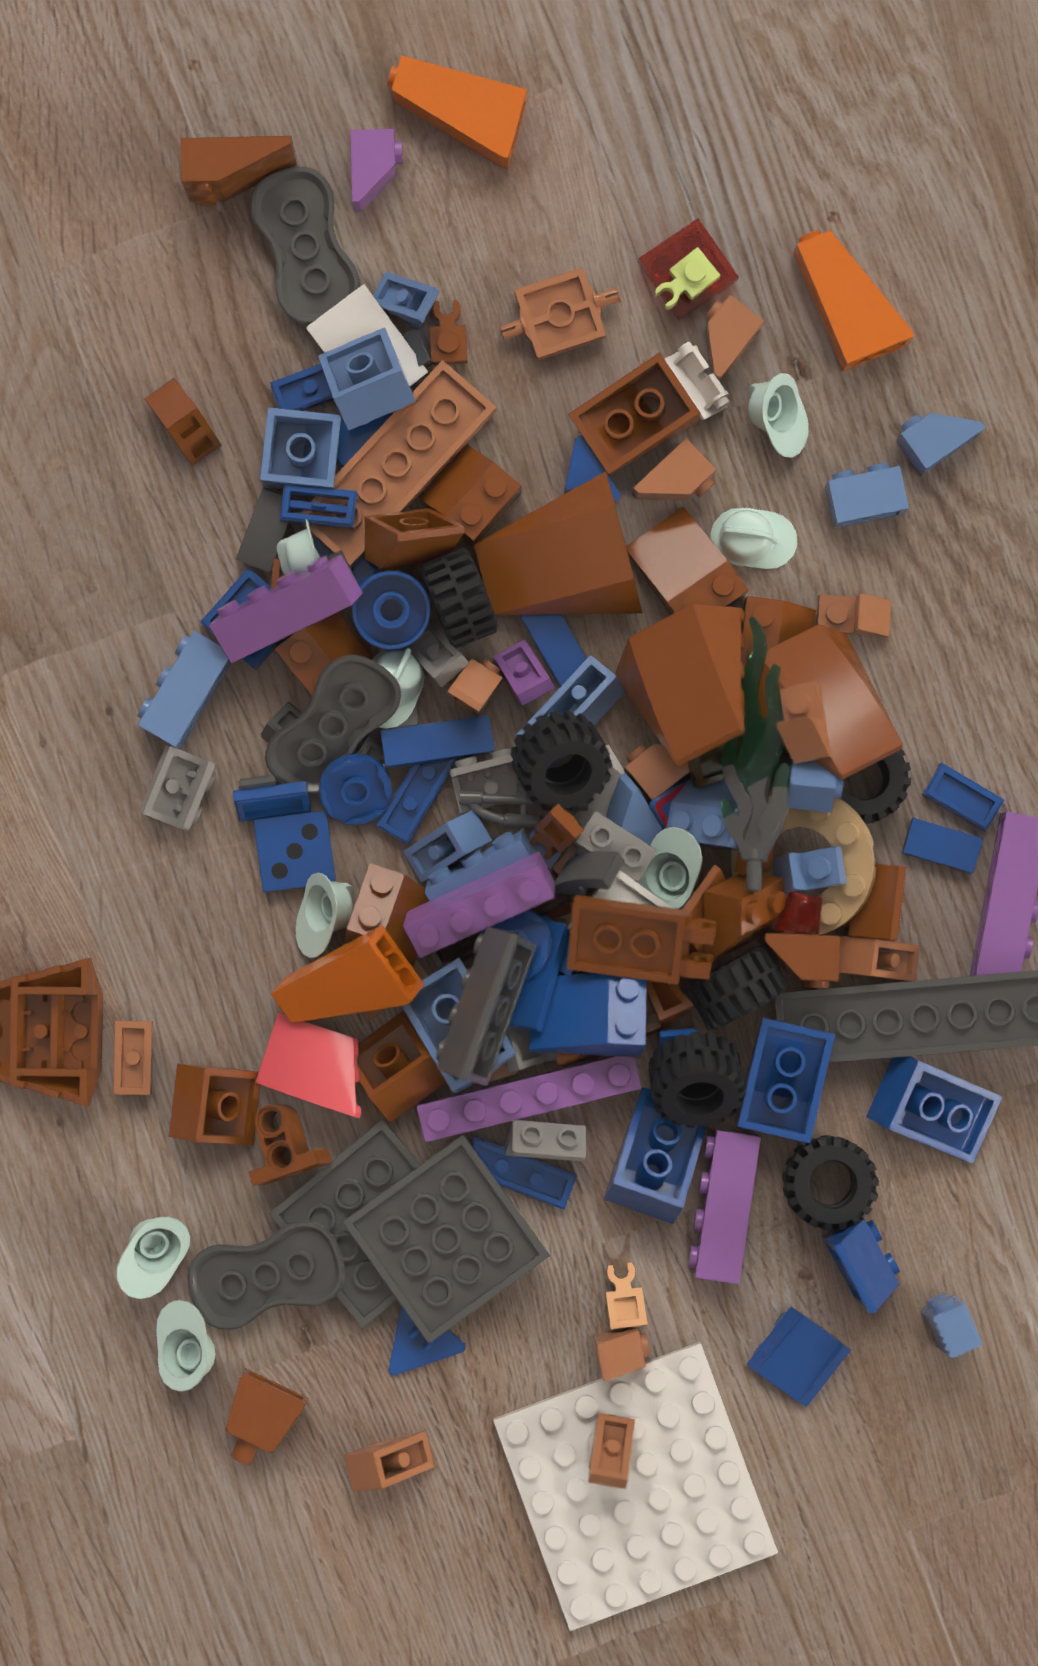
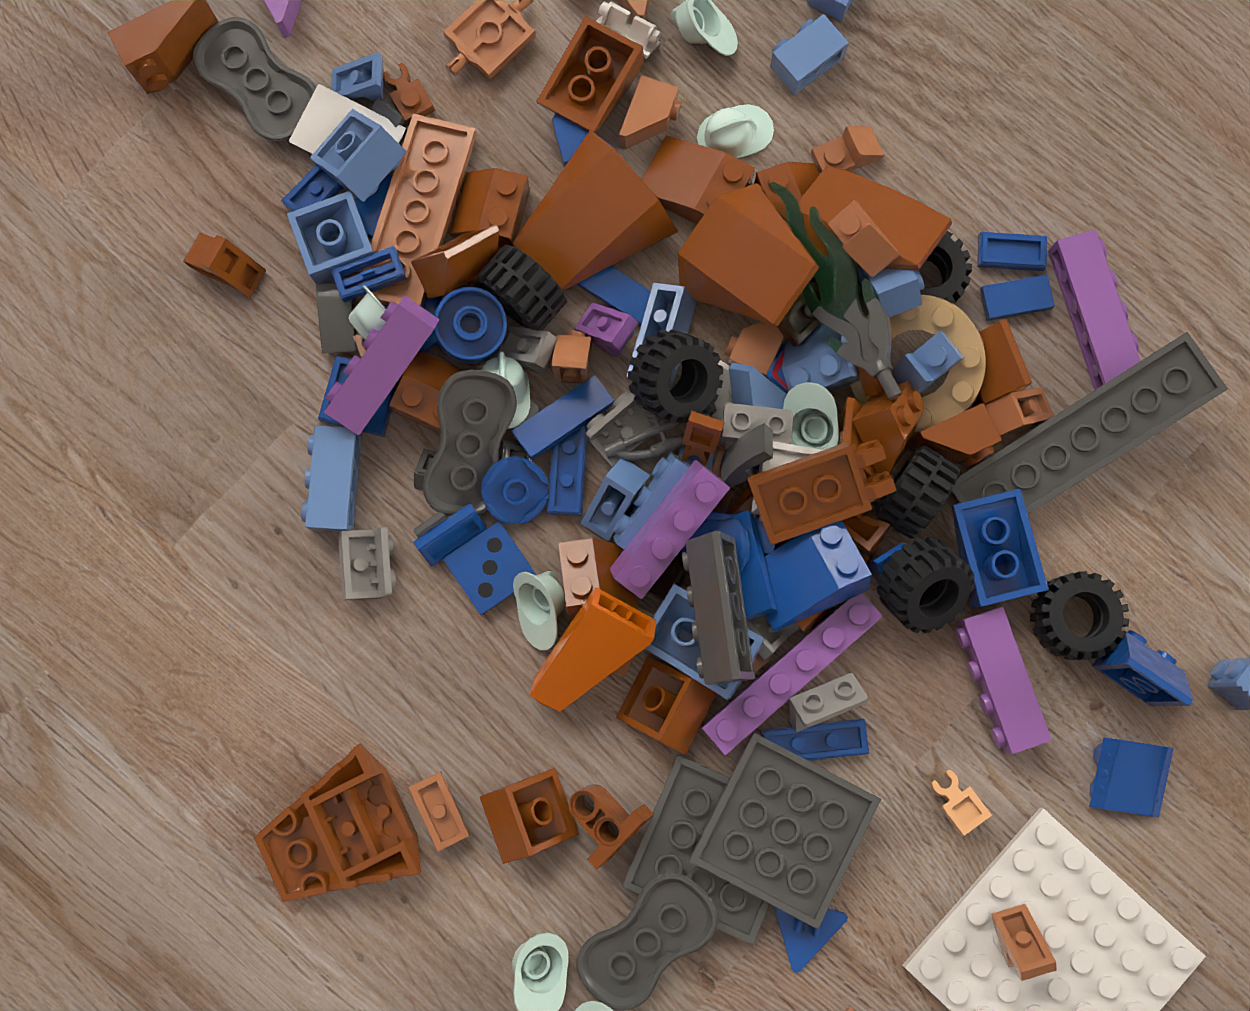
camera: 20 degrees left, 5 degrees down
(312, 1065) = (595, 739): coral slope -> none
(621, 1351) = (982, 851): nougat slope -> none
(654, 1163) = (924, 674): blue slope -> none
(800, 915) = (938, 404): clear red slope -> none
(934, 1107) = (1127, 510): blue slope -> none

